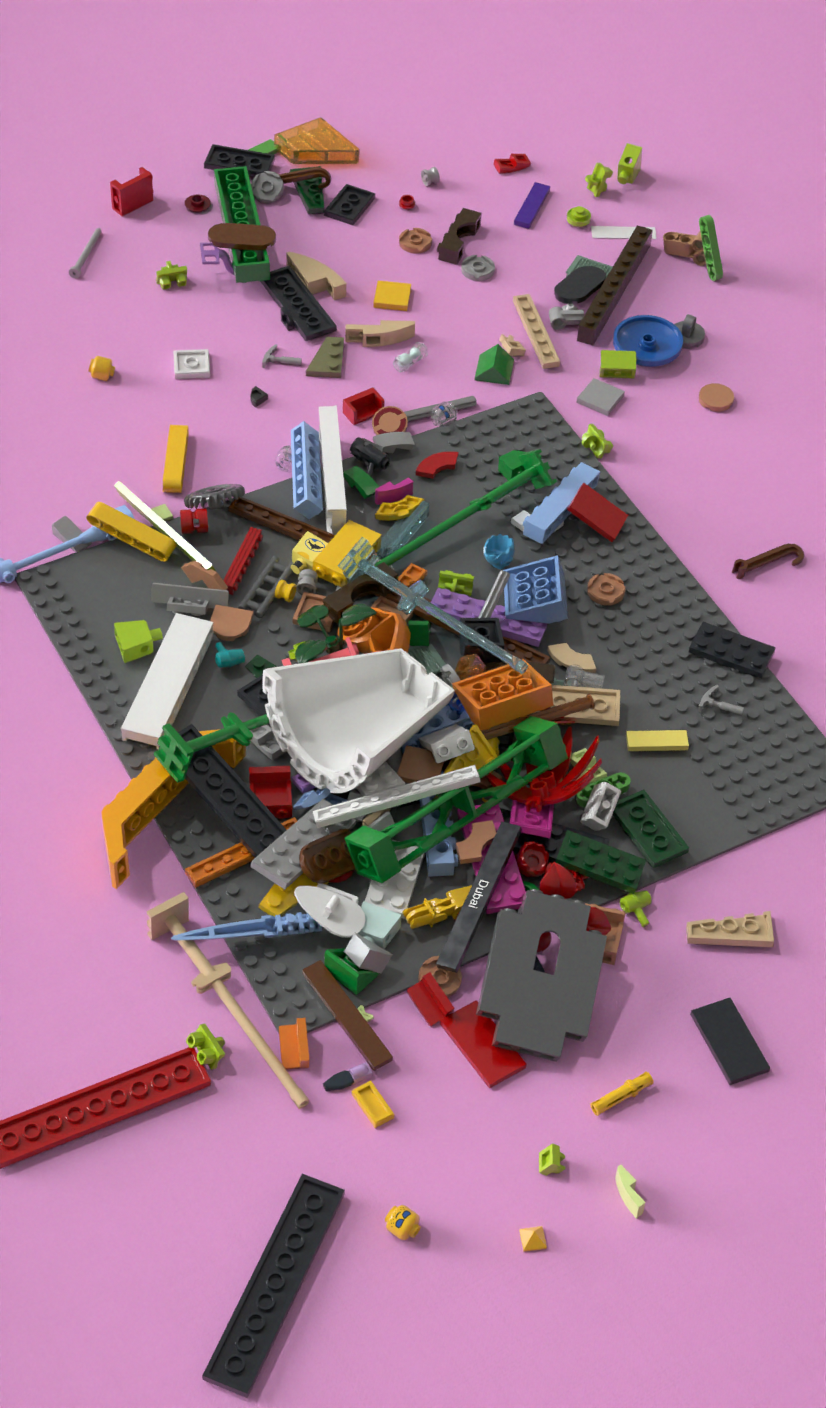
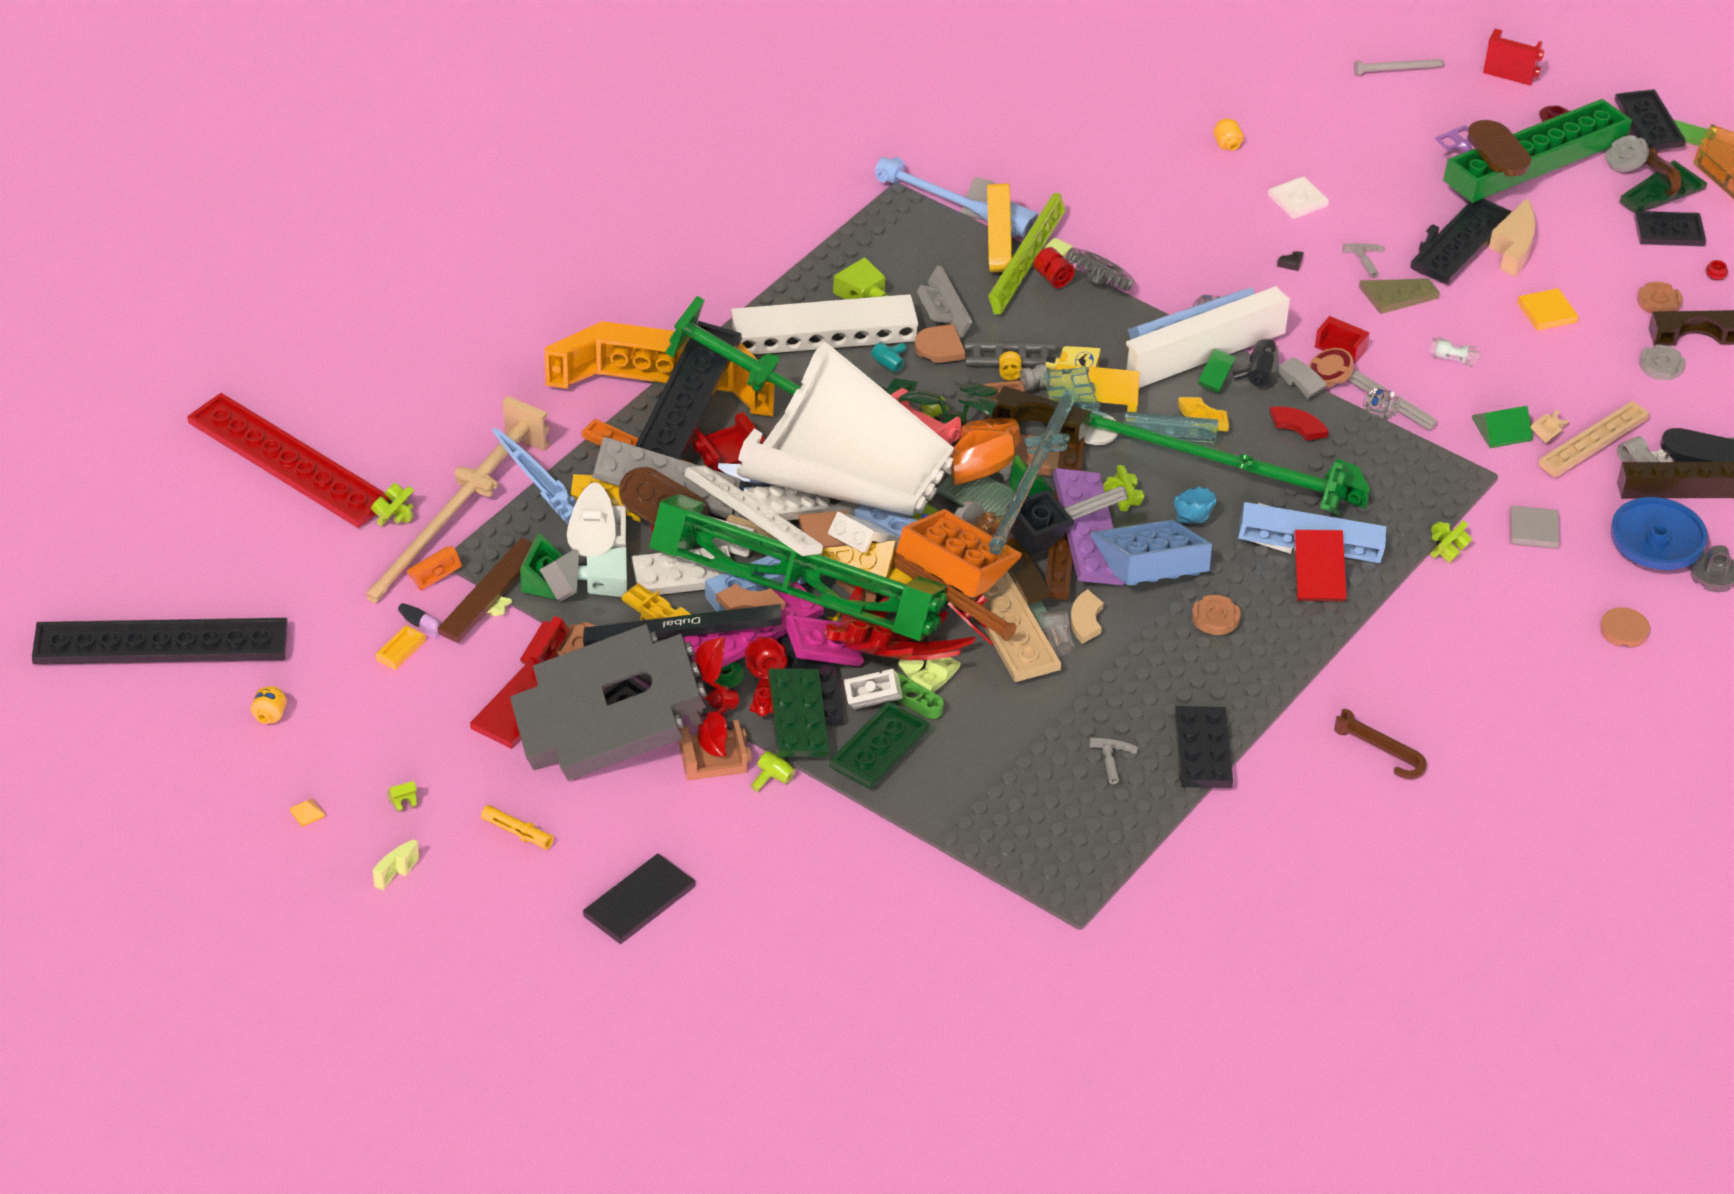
camera: 65 degrees right, 5 degrees down
(171, 273) = (1417, 131): lime hips -> none
(175, 458) = (1143, 231): yellow beam -> none
(196, 572) = (979, 300): nougat tile -> none
(243, 559) = (1031, 322): red piece -> none
(275, 520) = (1110, 337): reddish brown tile -> none
(385, 334) = (1472, 320): tan slope -> none
(392, 493) = (1216, 397): dark pink slope -> none
(412, 574) = (1107, 454): orange tile -> none
(617, 364) = (1593, 518): lime panel -> none
(657, 740) = (1015, 720): light yellow tile -> none
(744, 931) = (788, 861): tan wing -> none

